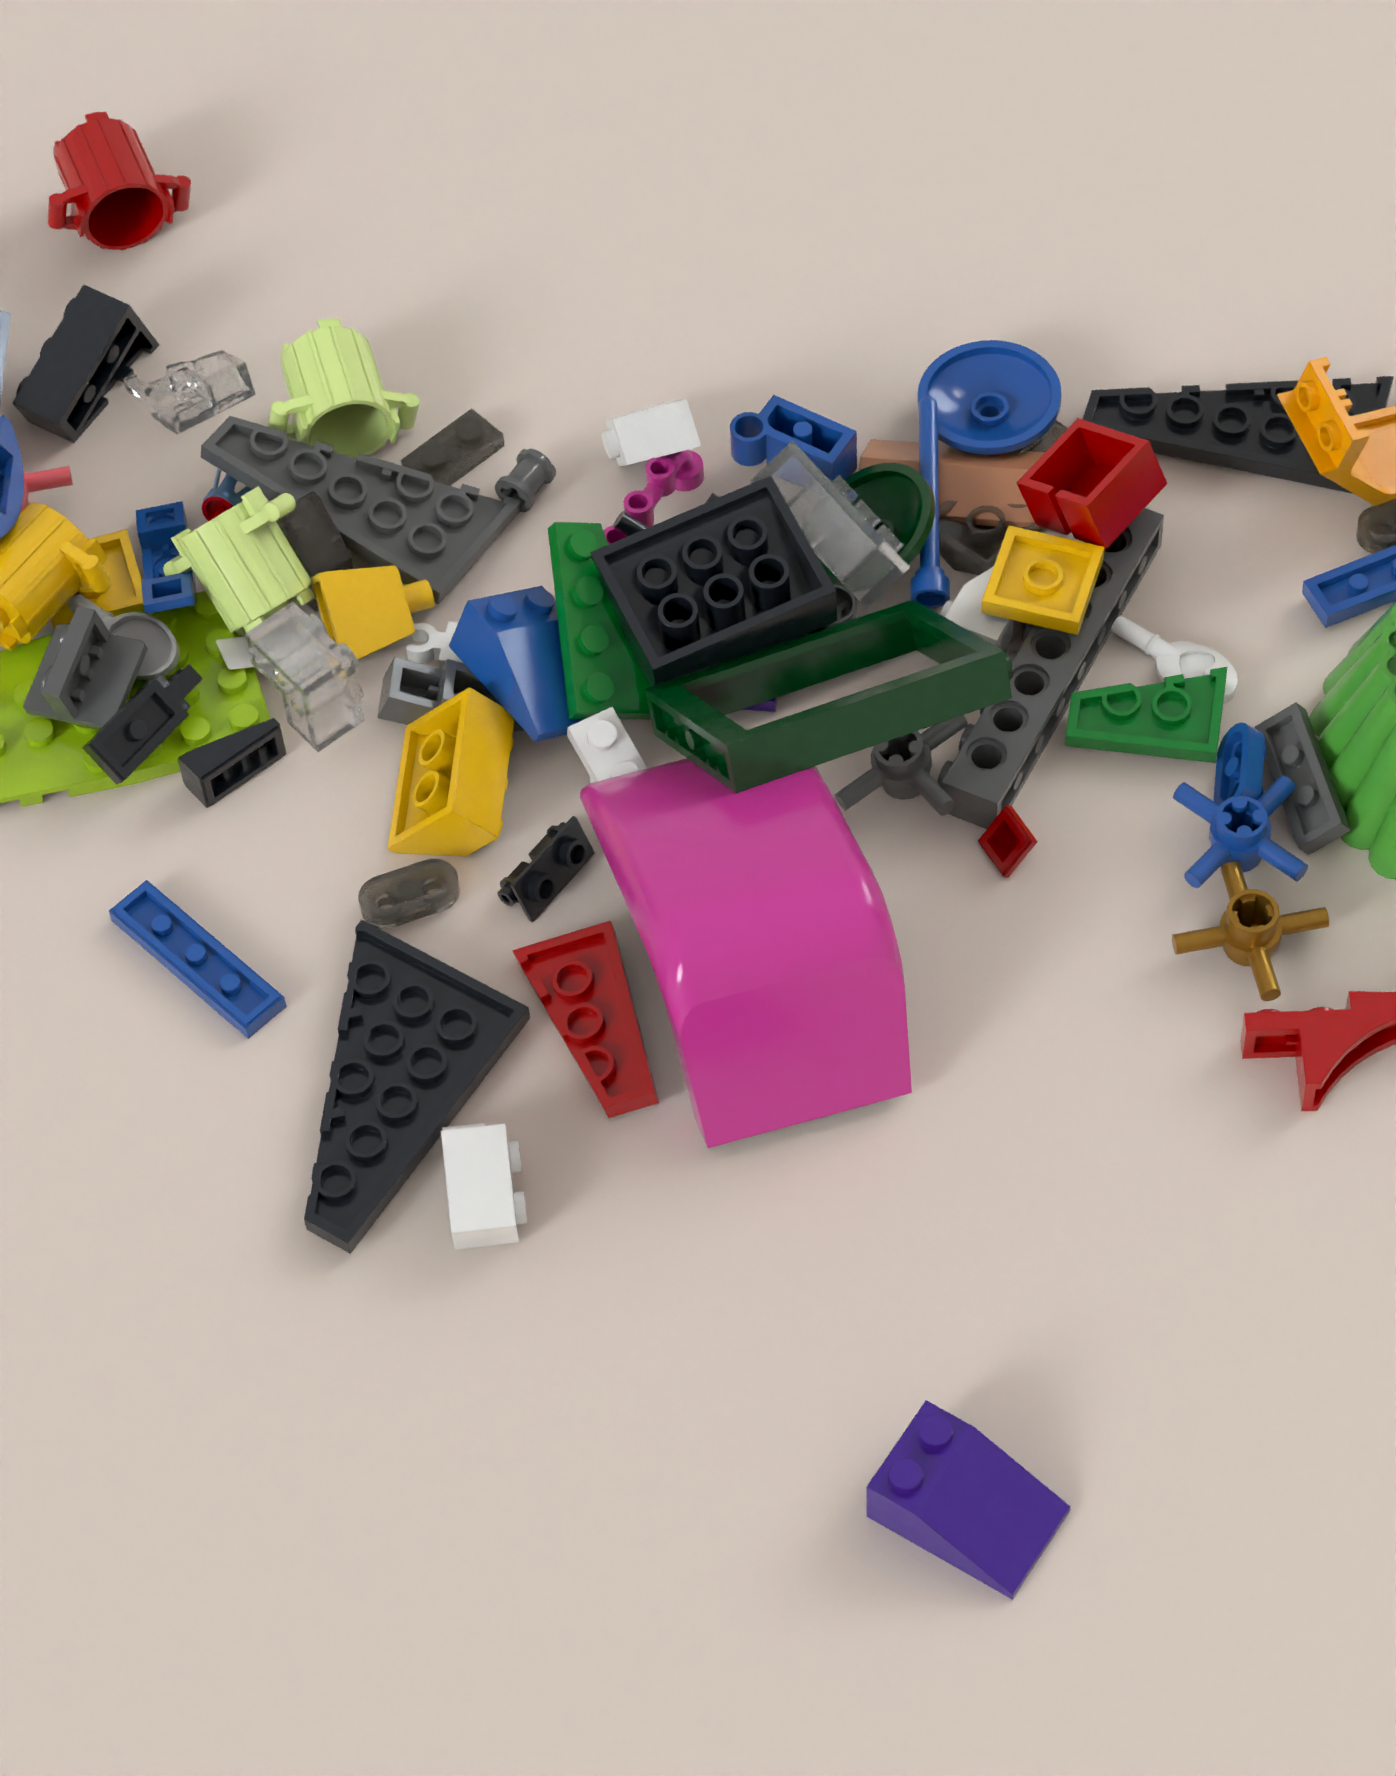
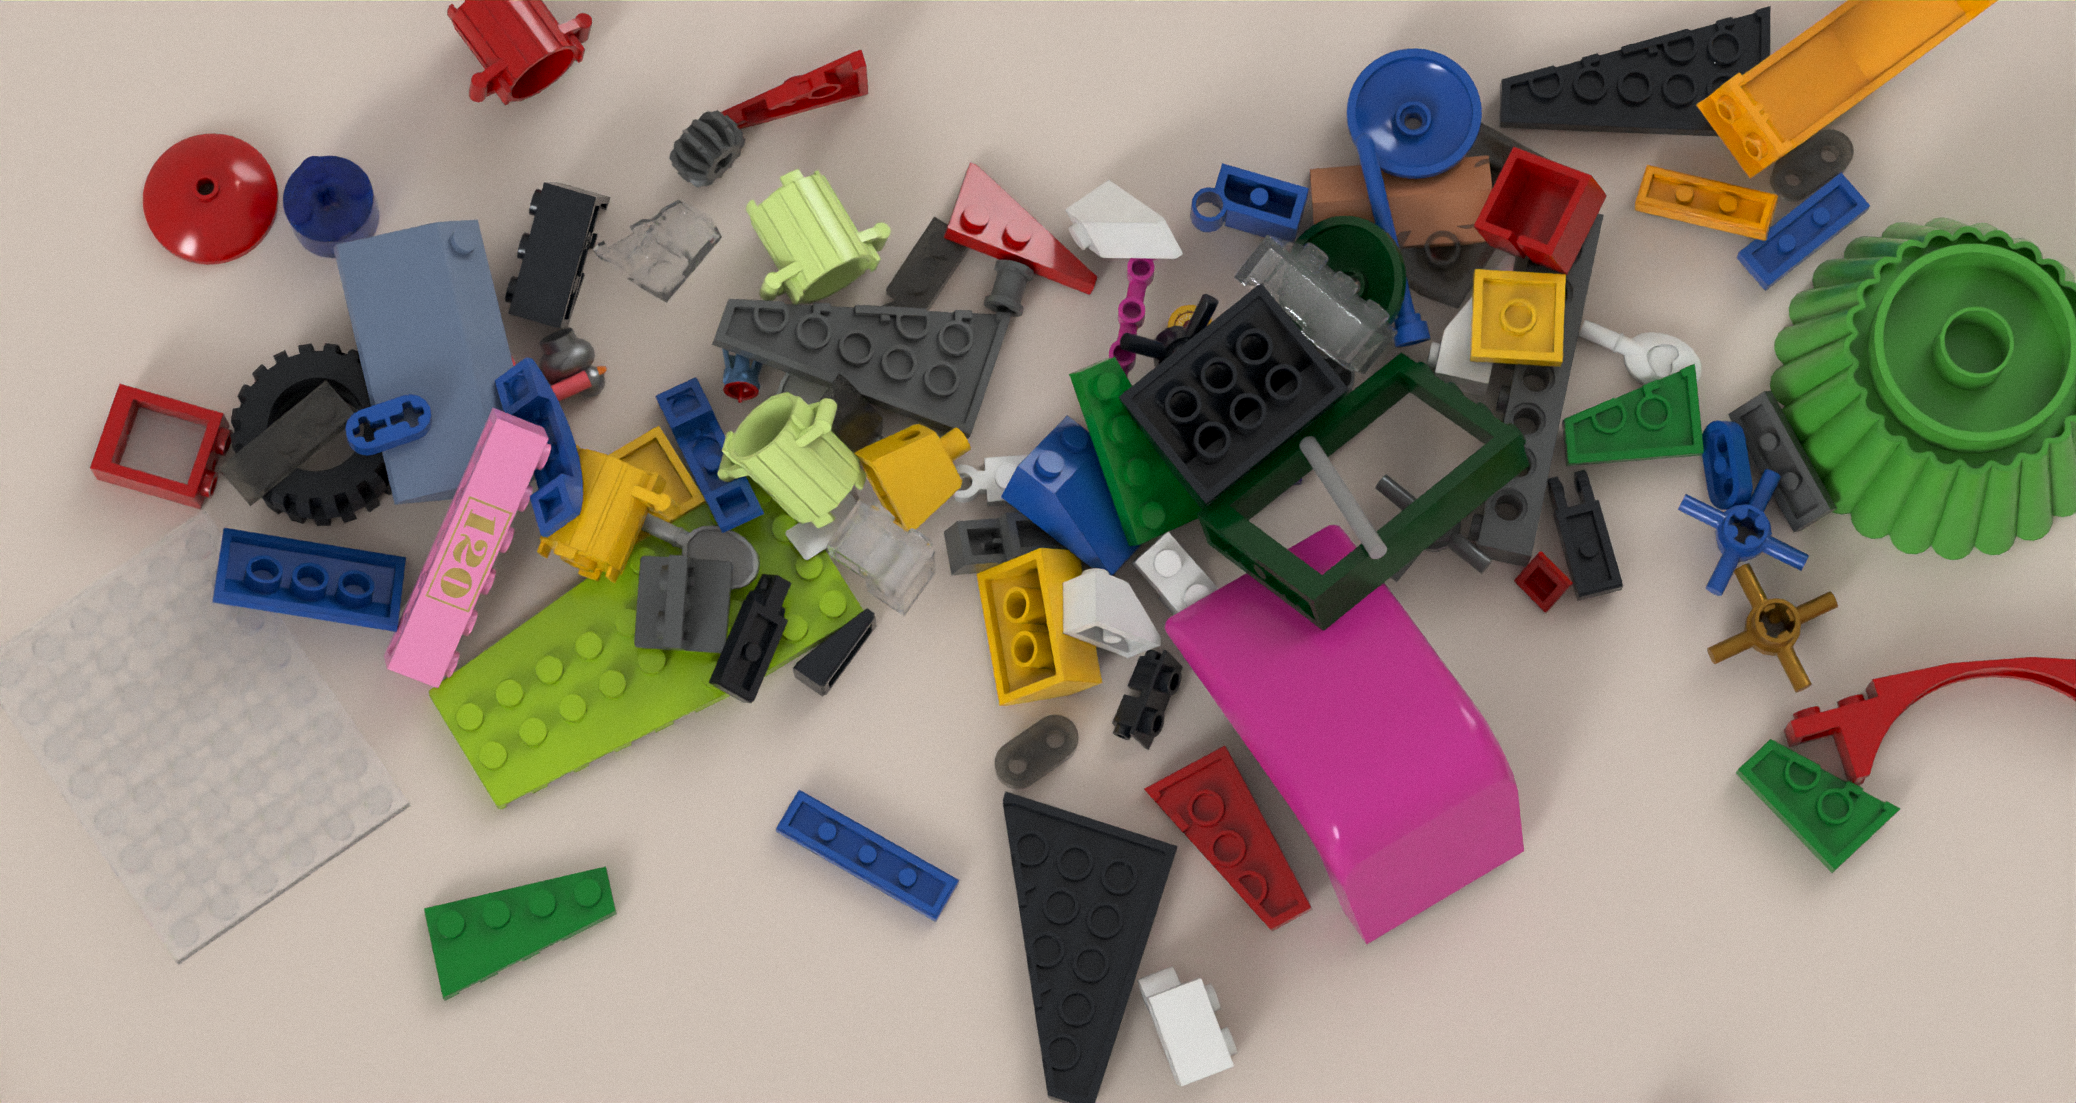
camera: 20 degrees left, 20 degrees up
(58, 449) = (567, 356): none -> flat silver animal
(263, 306) = (707, 148): none -> dark grey gear
(393, 278) = (818, 88): none -> red wing
(523, 771) = (1107, 614): none -> white slope
(529, 420) = (1000, 227): none -> wing
(797, 679) = (1343, 497): none -> light grey bar
(1065, 814) = (1584, 539): none -> black hinge
(1254, 1114) = (1819, 808): none -> green wing
(1280, 533) = (1706, 202): none -> light orange tile

